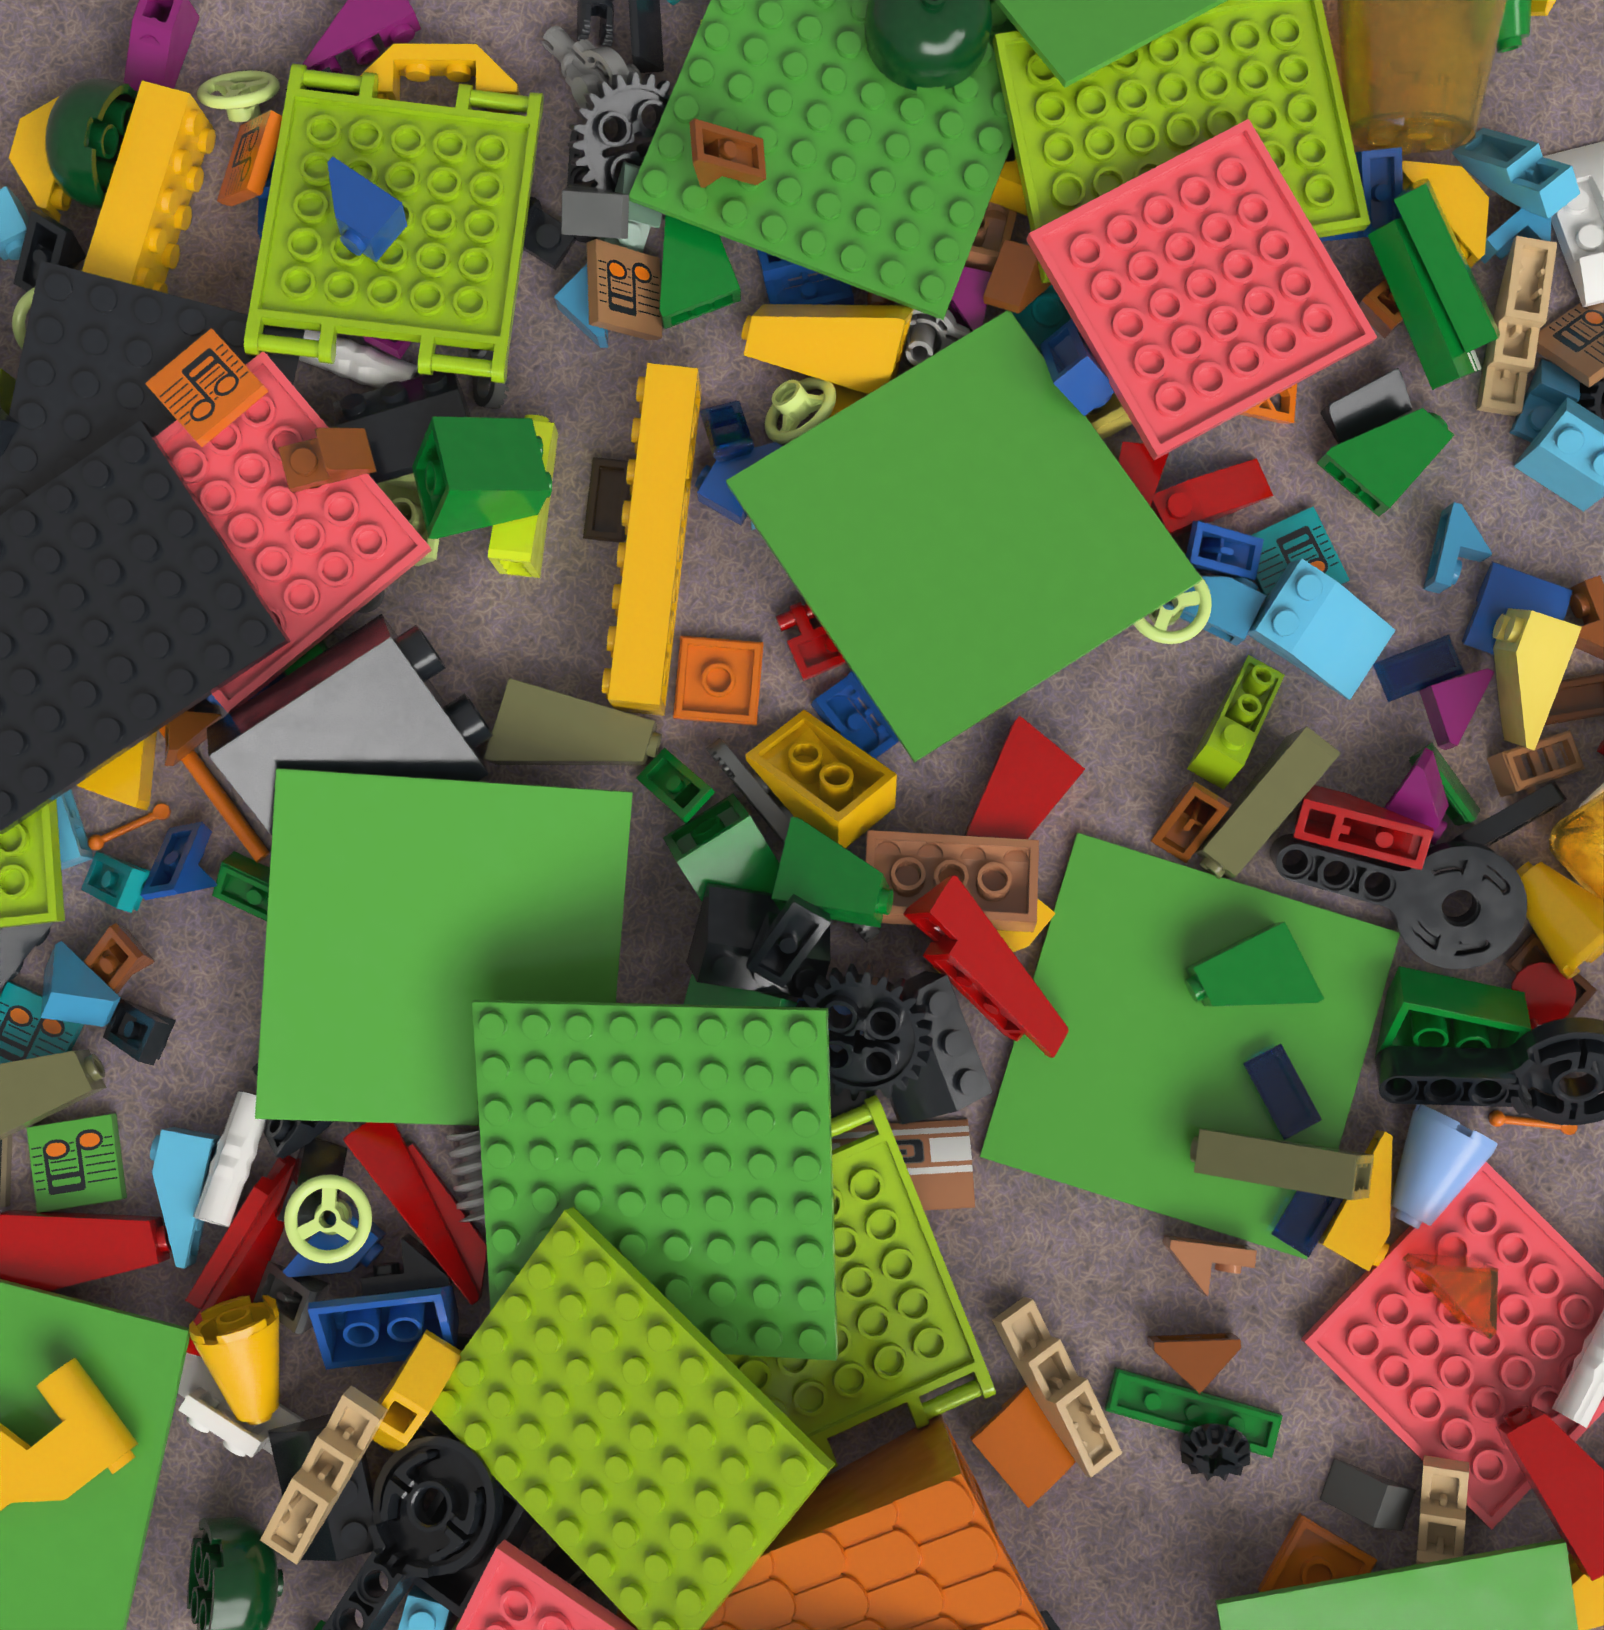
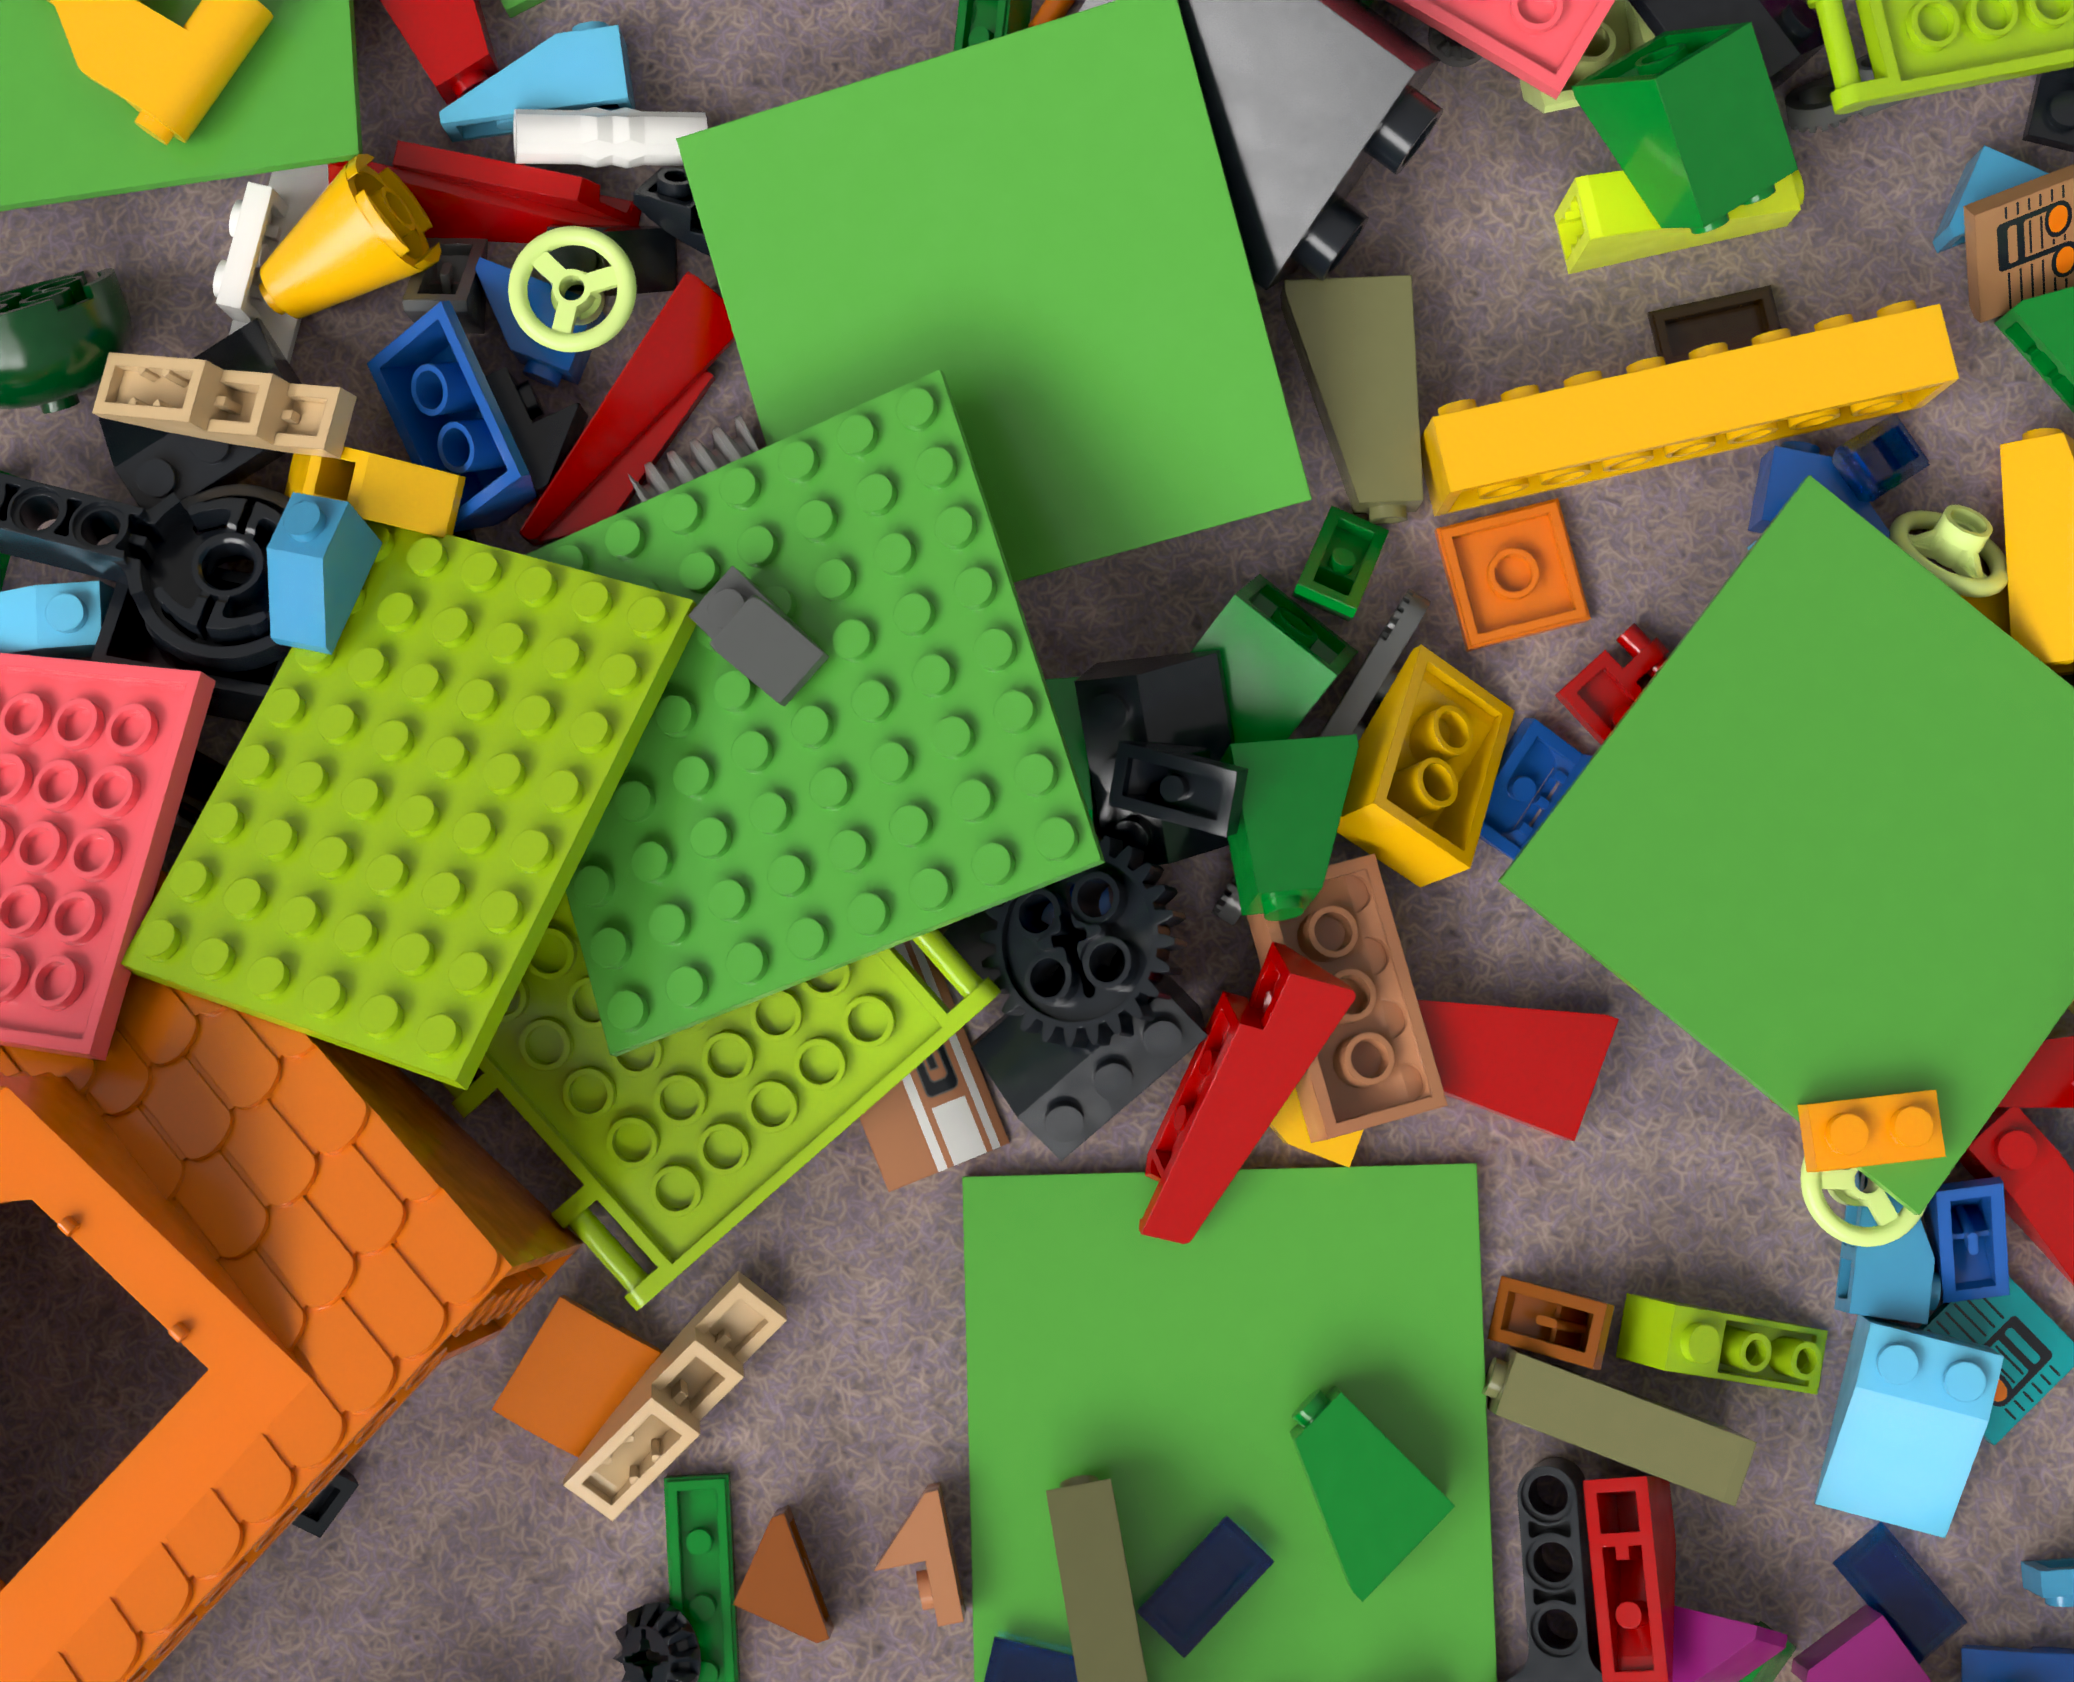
camera: 80 degrees right, 0 degrees up
(456, 1449) = (317, 570): none -> dark azure slope
(603, 1177) = (757, 636): none -> dark grey slope
(1142, 590) = (1871, 1131): none -> light orange plate

